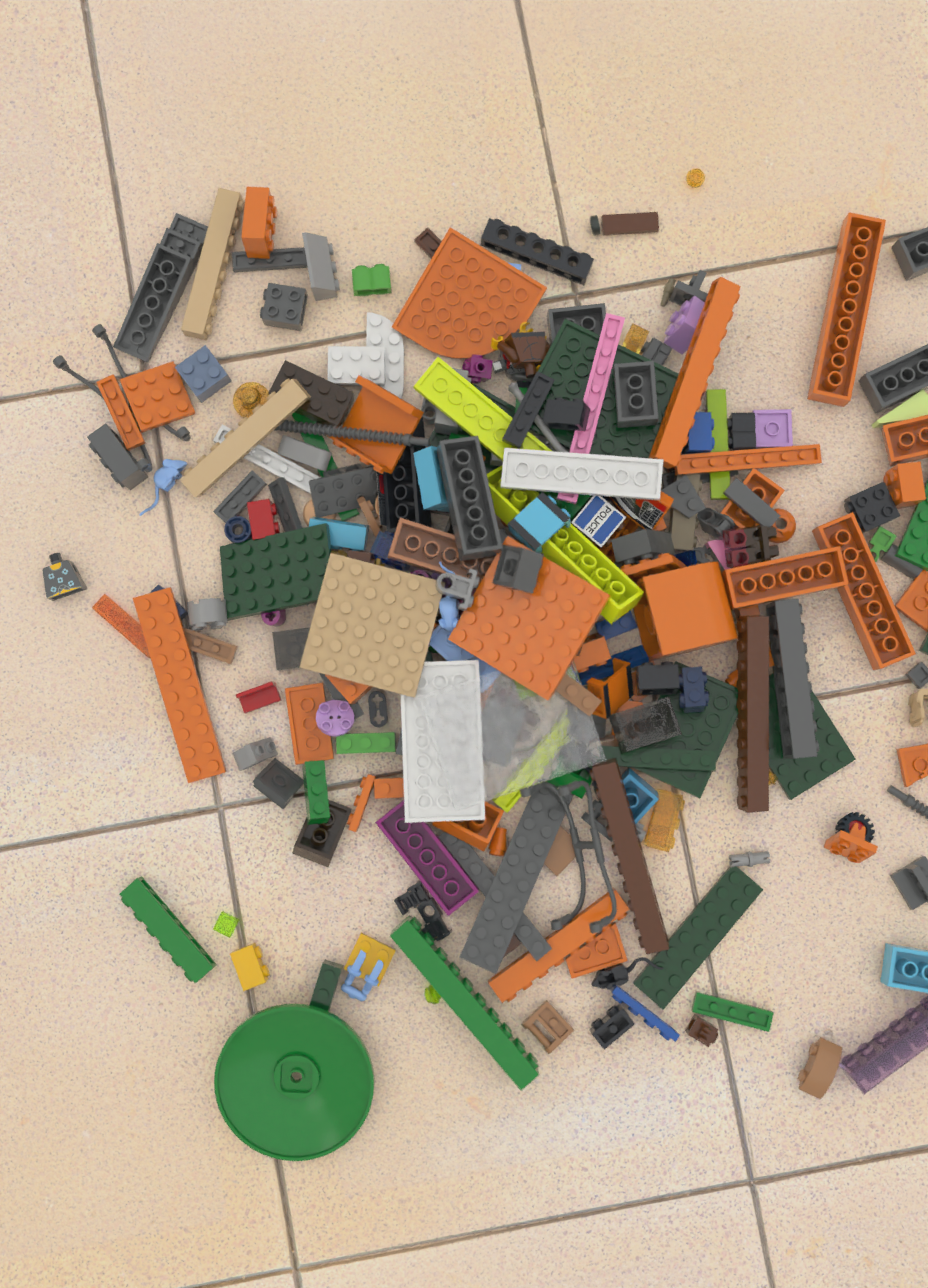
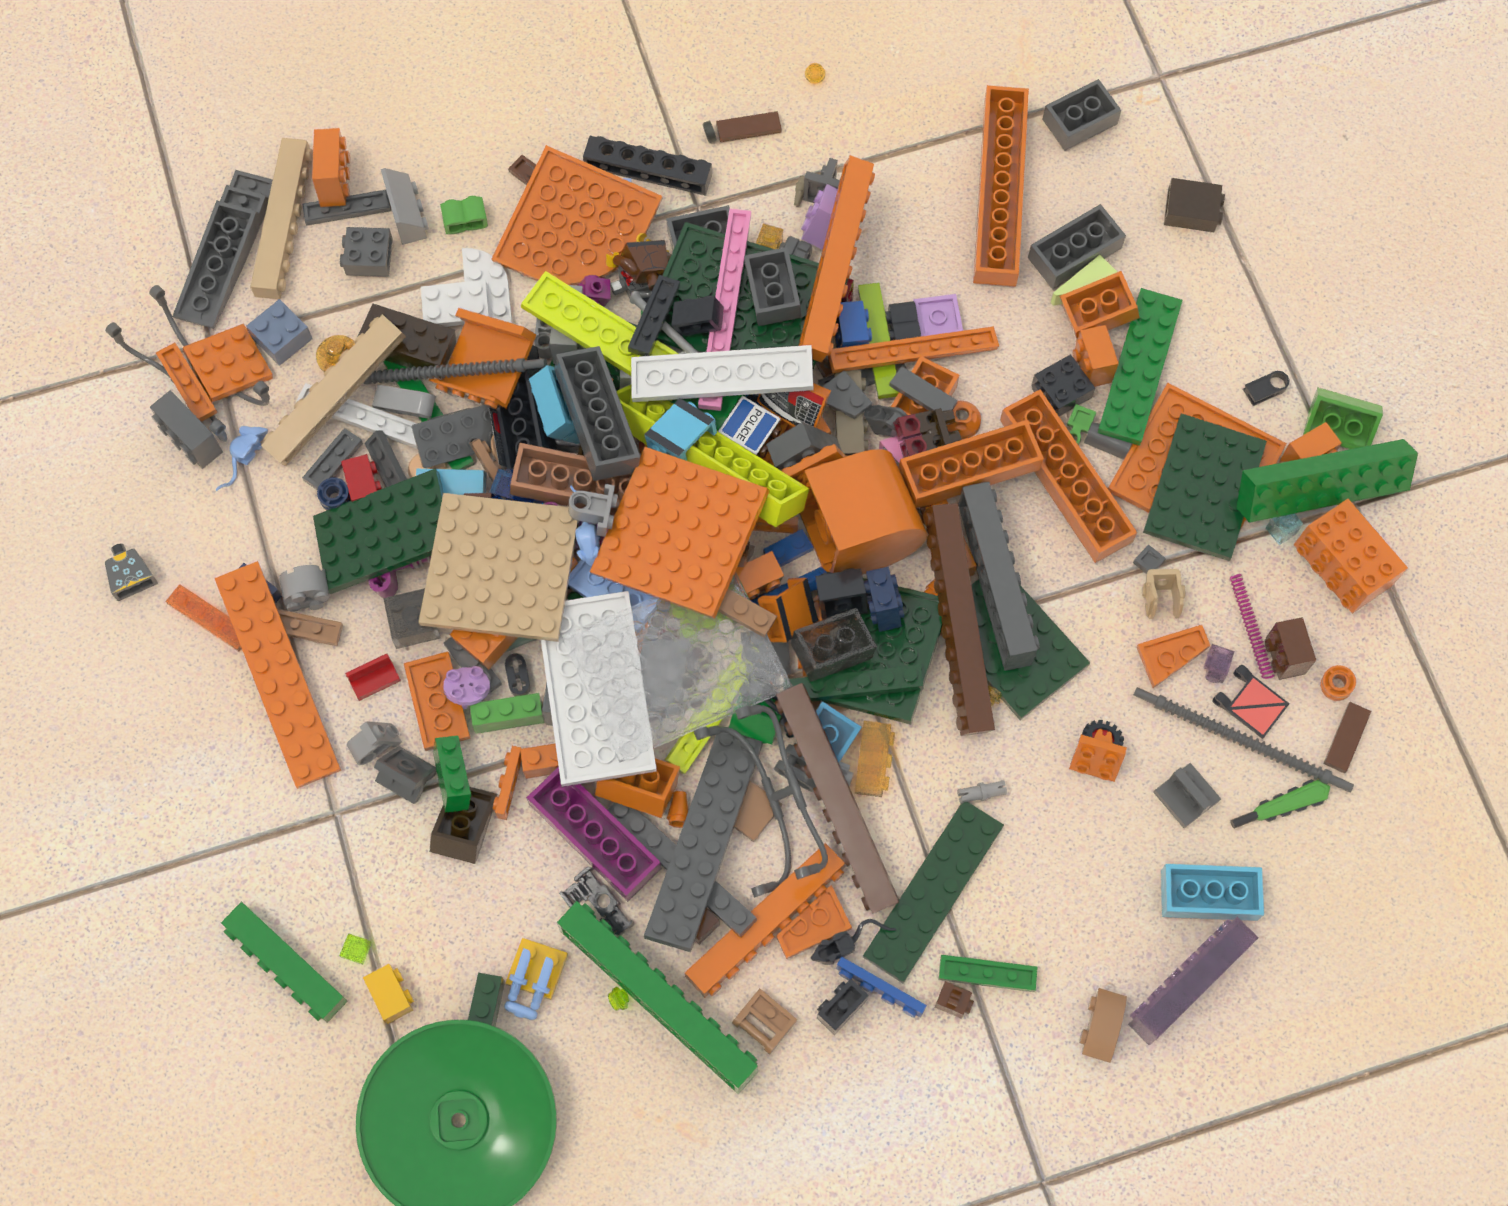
camera: 10 degrees left, 15 degrees down
(518, 568) = (660, 475): dark grey slope -> none

